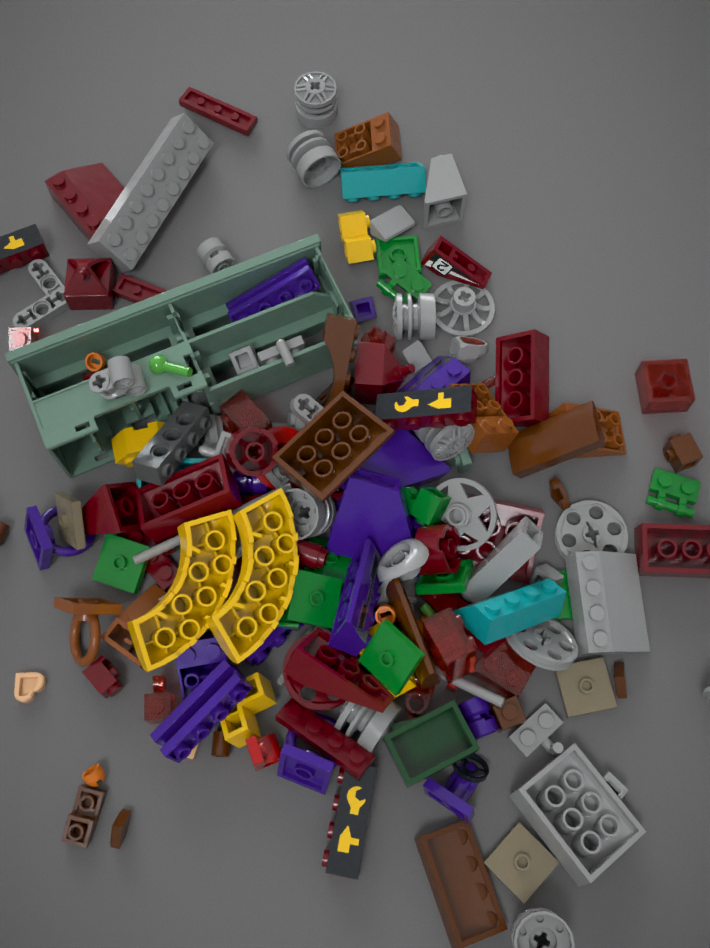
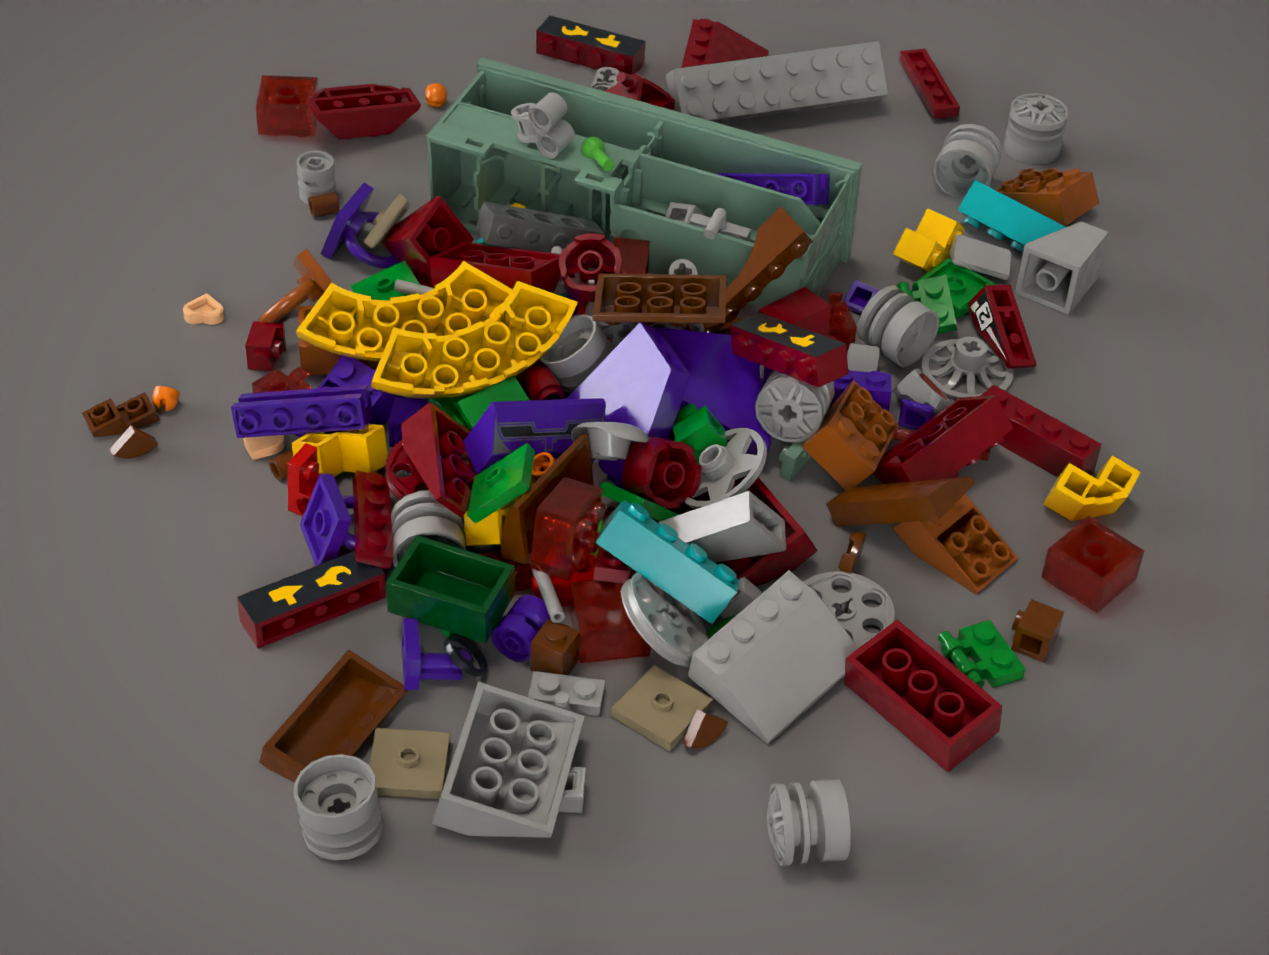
camera: 45 degrees right, 25 degrees down
(480, 367) = (914, 414): none -> dark purple slope
(556, 323) = (1043, 438): none -> dark red brick
(617, 333) = (1082, 495): none -> yellow brick

